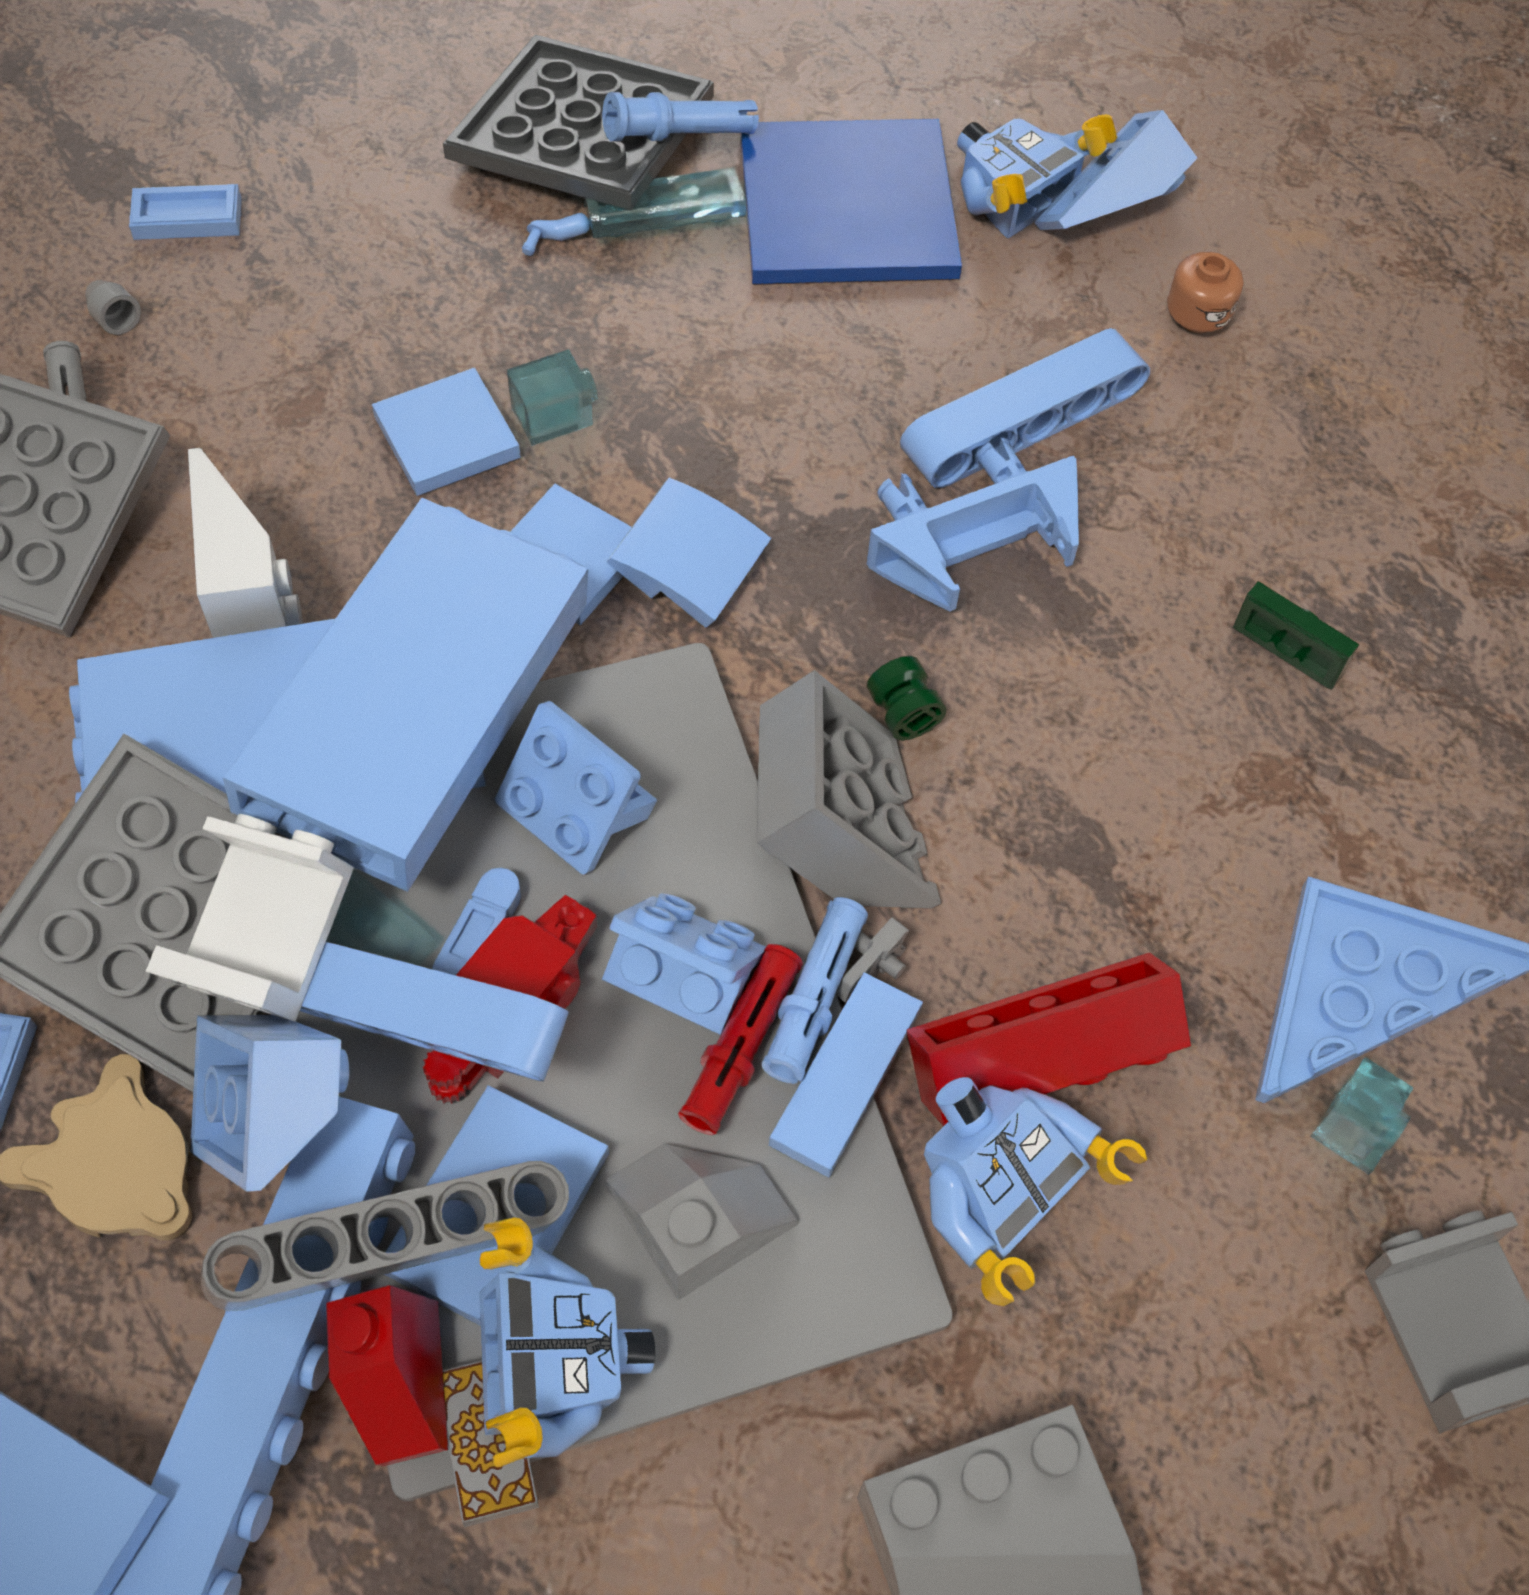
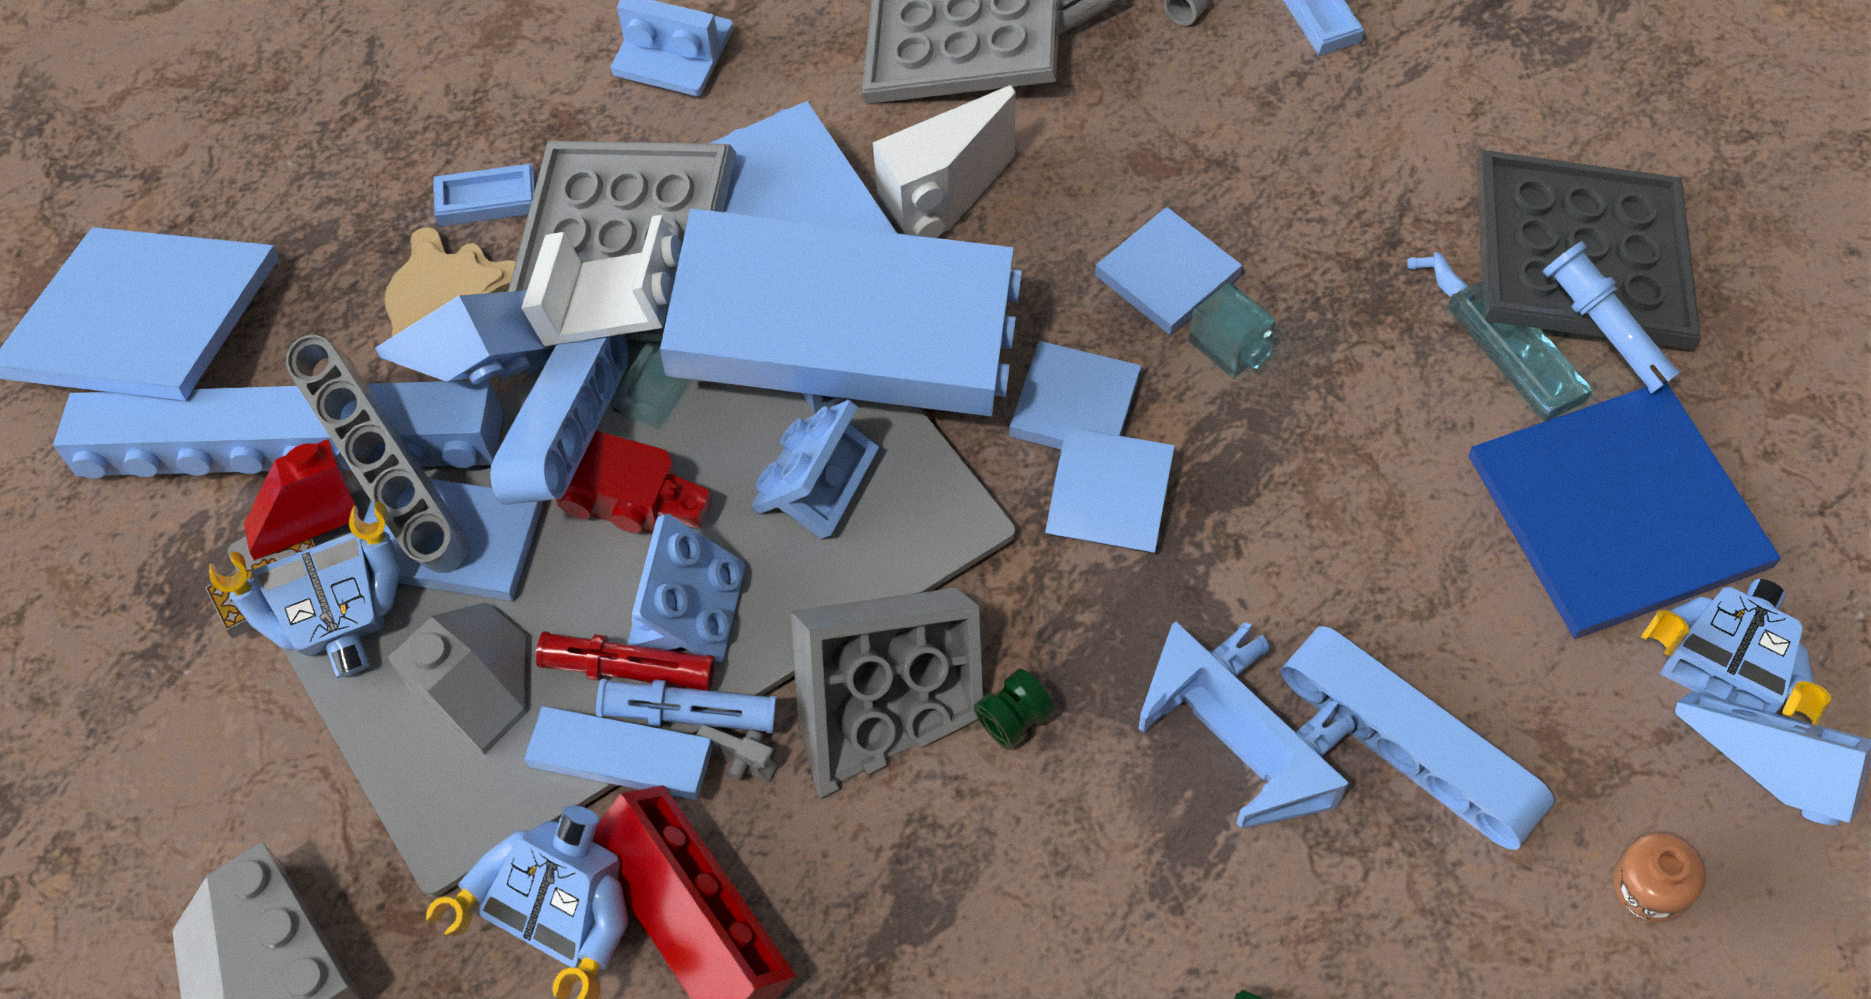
camera: 80 degrees right, 0 degrees up
(492, 900) = (685, 447): light blue piece -> none

